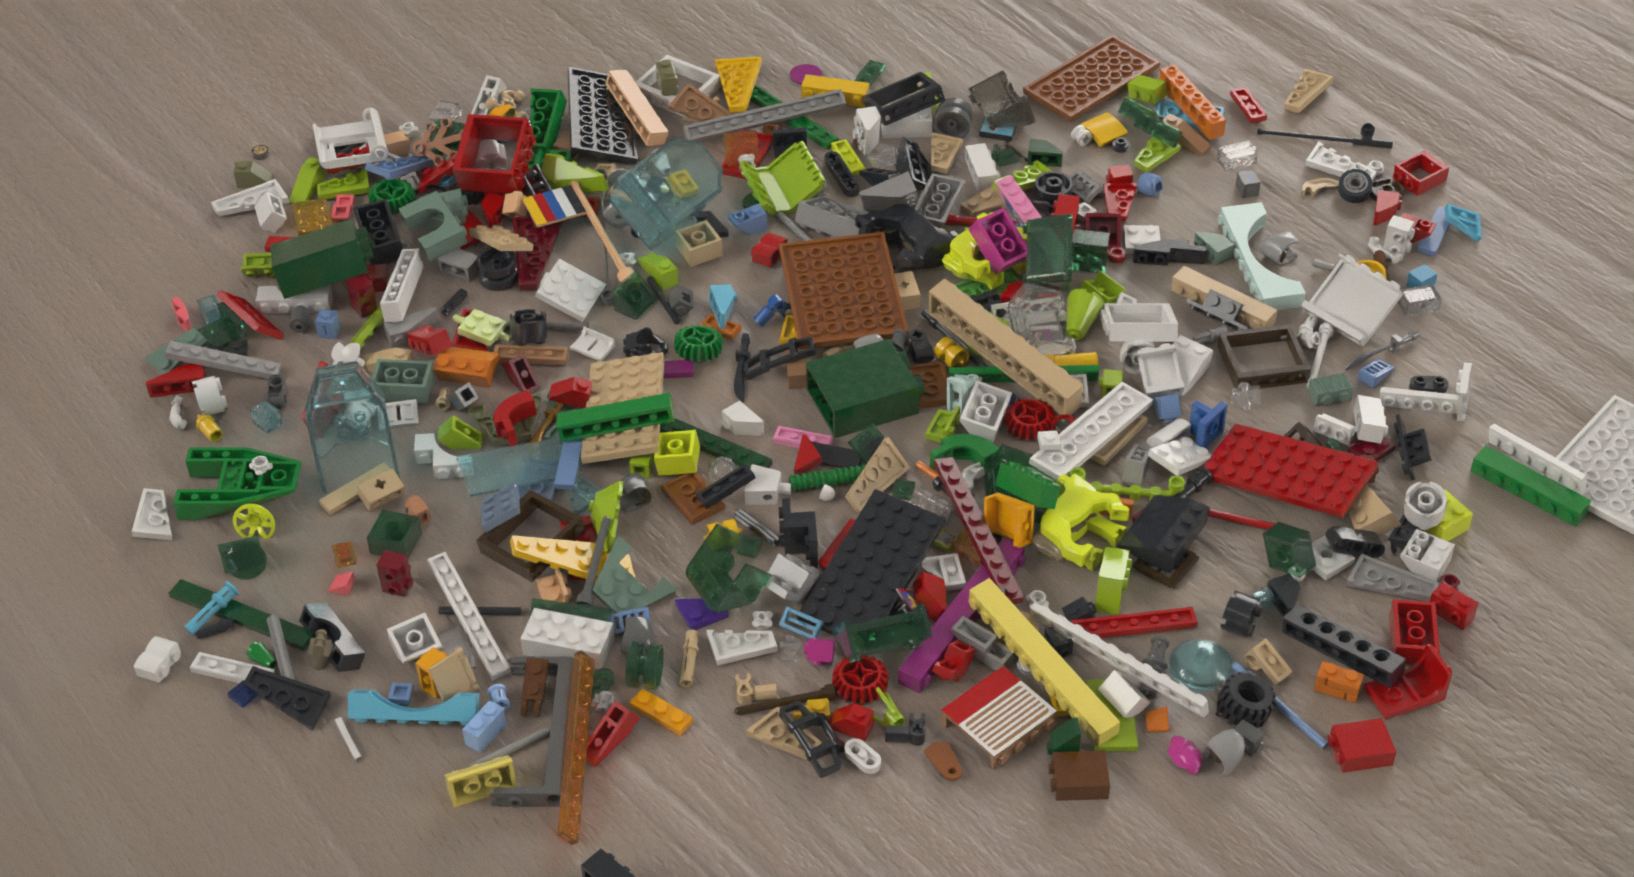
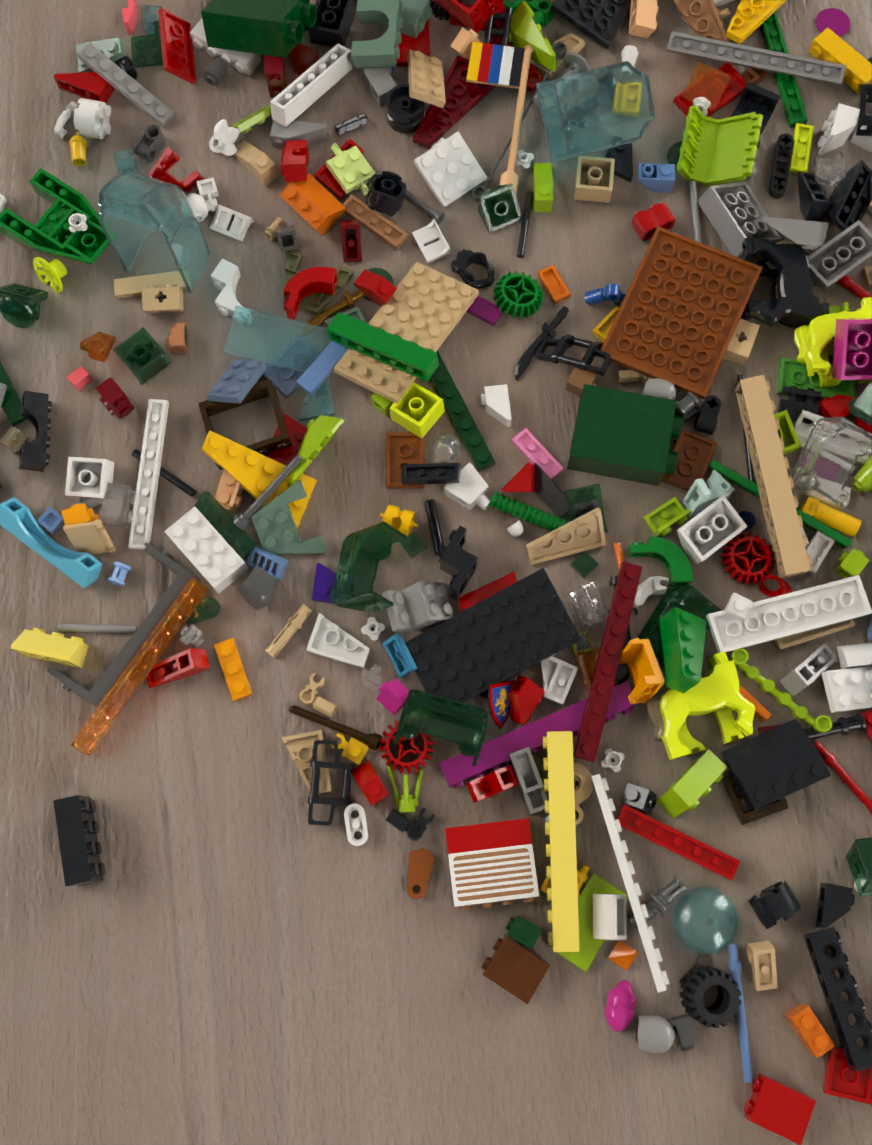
camera: 35 degrees right, 30 degrees up
(239, 347) = (152, 76): pearl dark grey plate -> none
(328, 324) = (233, 91): medium blue brick -> none
(404, 379) = (250, 191): sand green brick -> none
(459, 435) = (261, 278): lime slope -> none
(484, 726) = (88, 597): light blue brick -> none
(492, 209) = (446, 34): red slope -> none
(534, 685) = (149, 582): reddish brown hinge -> none
(635, 492) = (357, 427): dark grey piece -> none
(644, 665) = (241, 622): clear green wheel -> none
(681, 304) = (536, 236): dark grey brick -> none
(722, 302) = (571, 258): medium azure slope -> none
(951, 353) = (730, 440): yellow wheel -> none
(1063, 648) = (590, 816): black bracket -> none
(1265, 595) = (807, 890): clear light blue cone -> none

